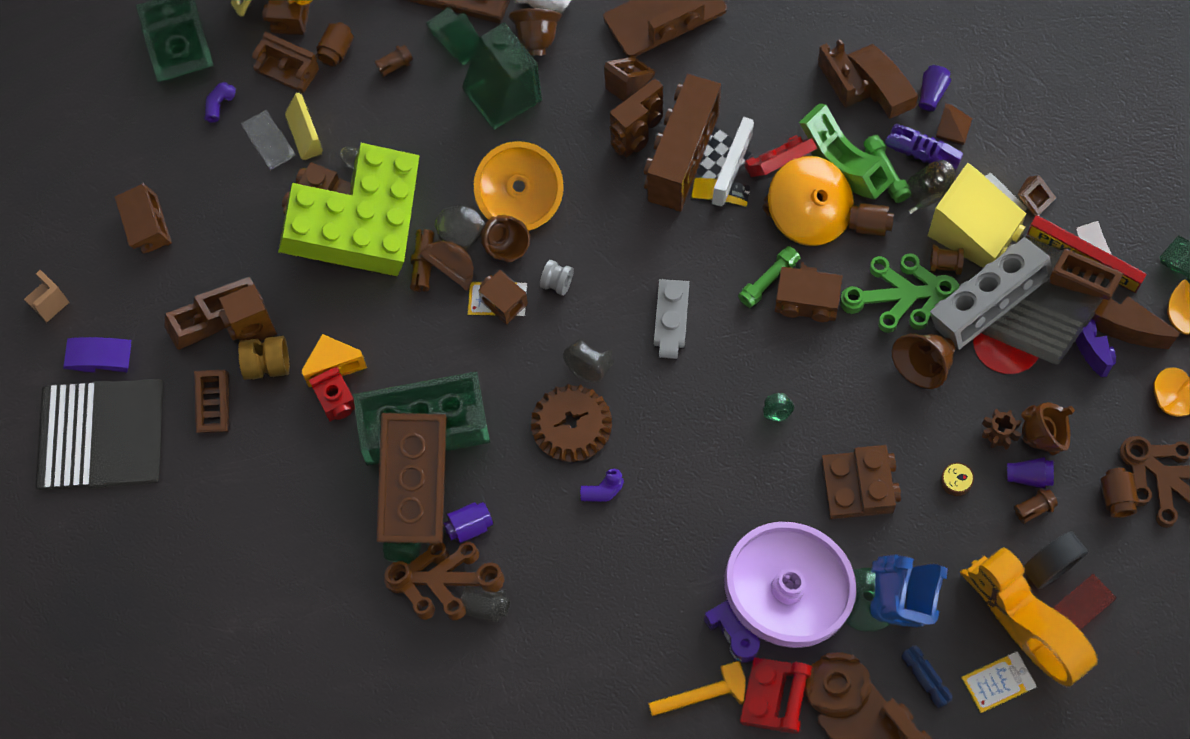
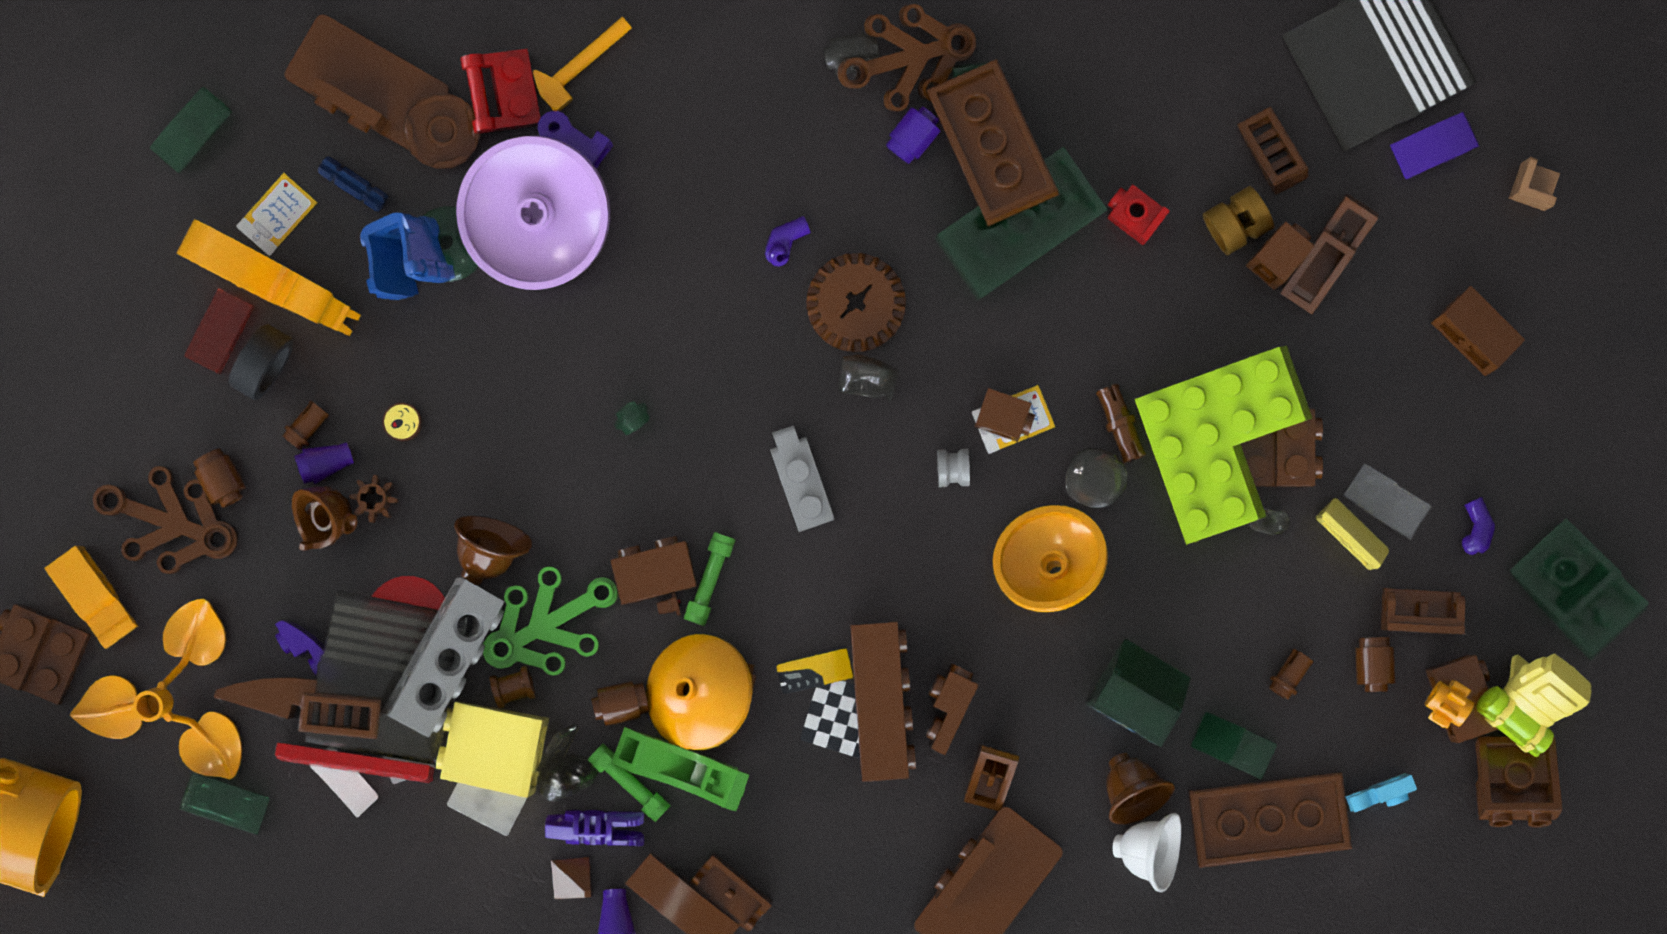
camera: 150 degrees right, 20 degrees up
(332, 353) = (1162, 255): light orange slope -> none
(450, 260) = (1085, 431): reddish brown tile -> none
(505, 238) = (1035, 488): reddish brown hair -> none
(733, 162) = (812, 707): white tile -> none
(778, 157) = (758, 735): red plate -> none
(860, 482) = (506, 370): reddish brown plate -> none
(1036, 195) = (442, 823): reddish brown slope -> none

